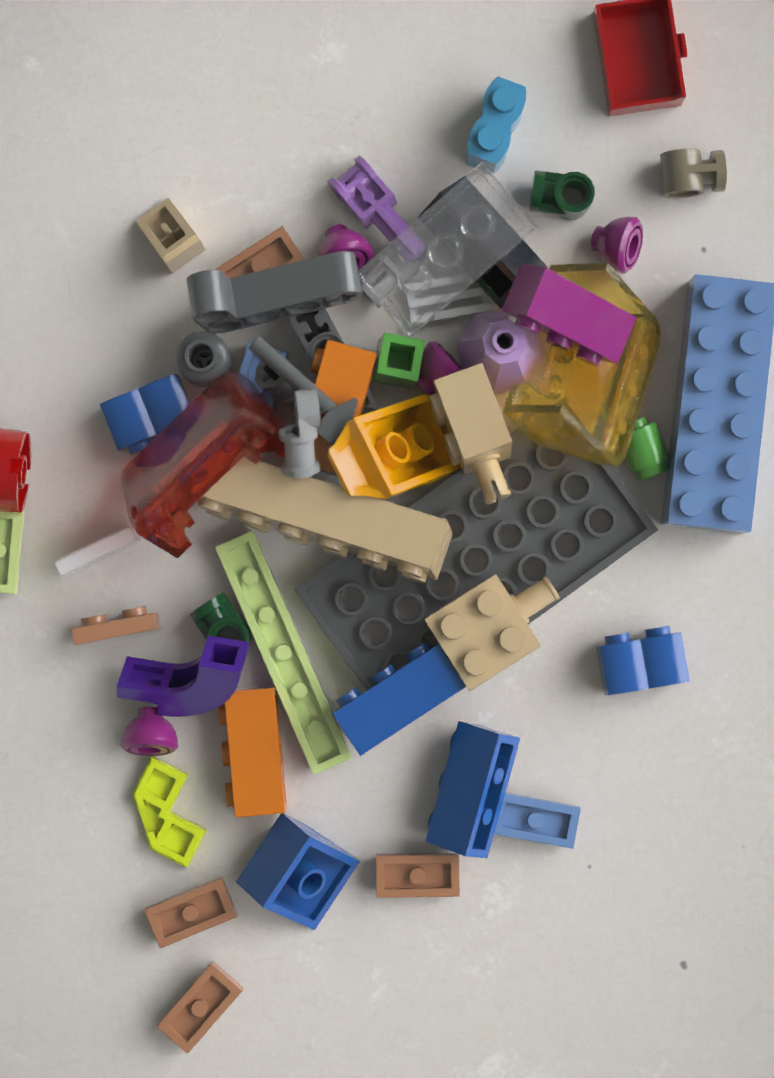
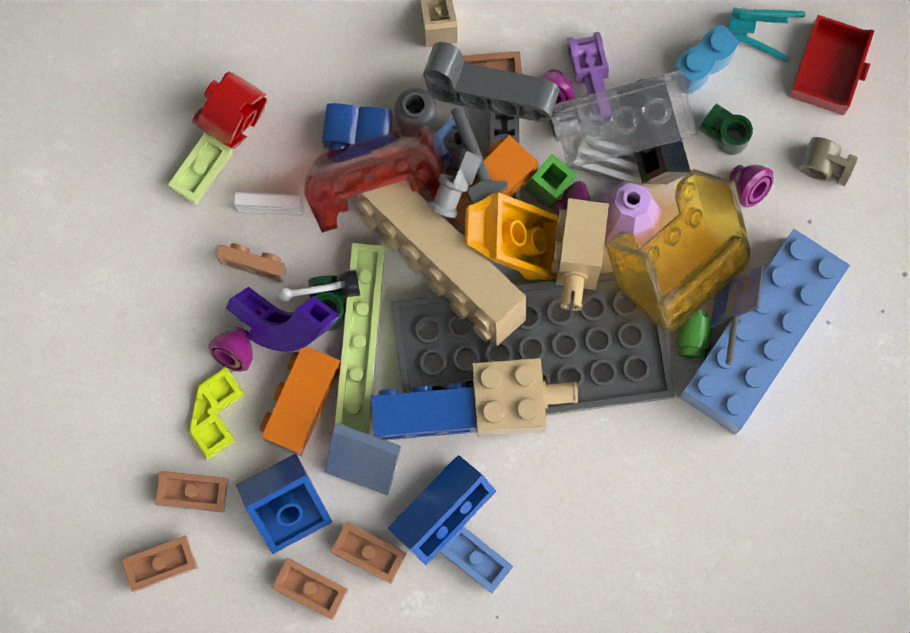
camera: 25 degrees right, 10 degrees down
(234, 599) = (345, 284): none -> hinge
(357, 781) = (362, 458): none -> sand blue tile
(375, 947) = (310, 588): none -> nougat plate
(516, 51) = (744, 22): none -> teal plant
(568, 315) = (688, 206): magenta brick -> none
(642, 662) = (614, 485): blue brick -> none
(672, 389) = (735, 299): none -> piece

